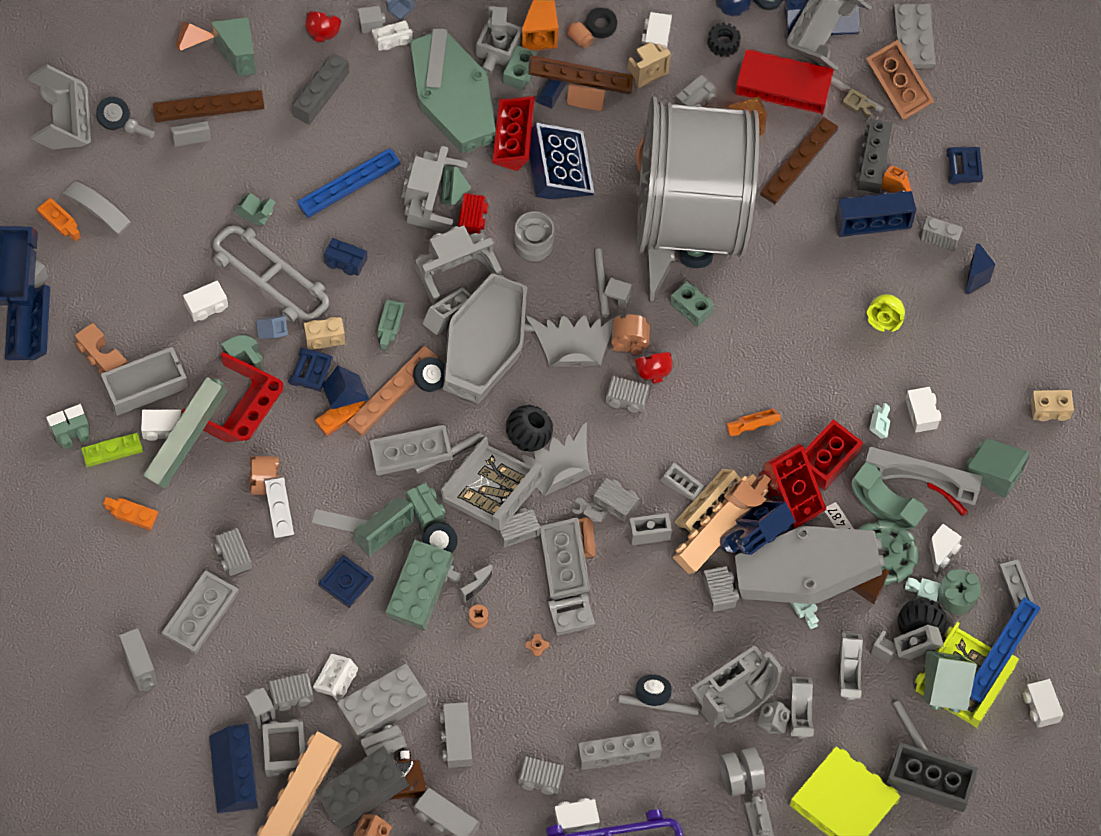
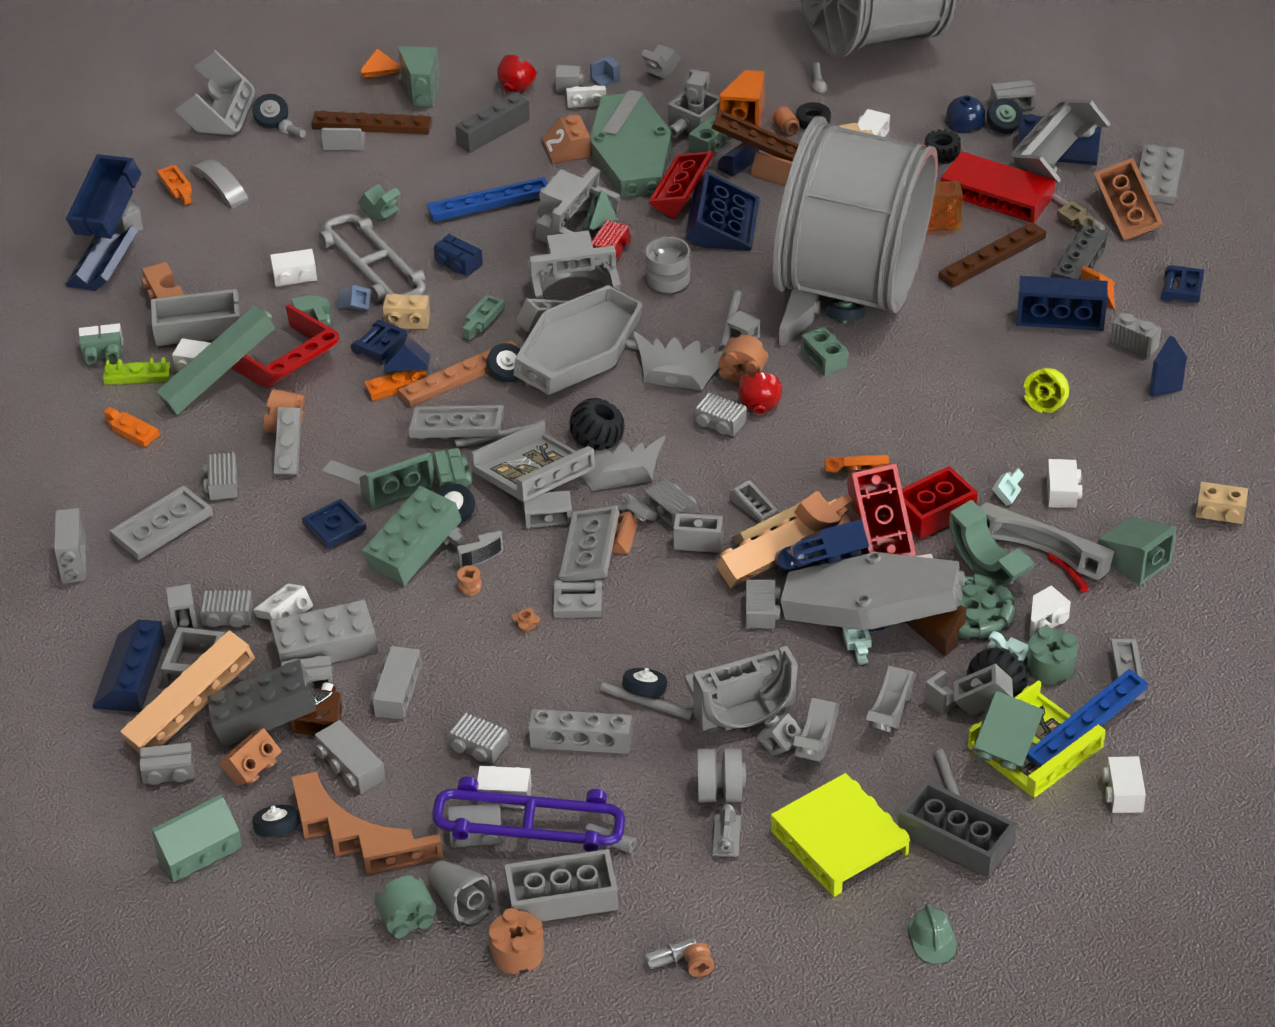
camera: 20 degrees right, 20 degrees down
(394, 97) = (567, 140): none -> nougat slope

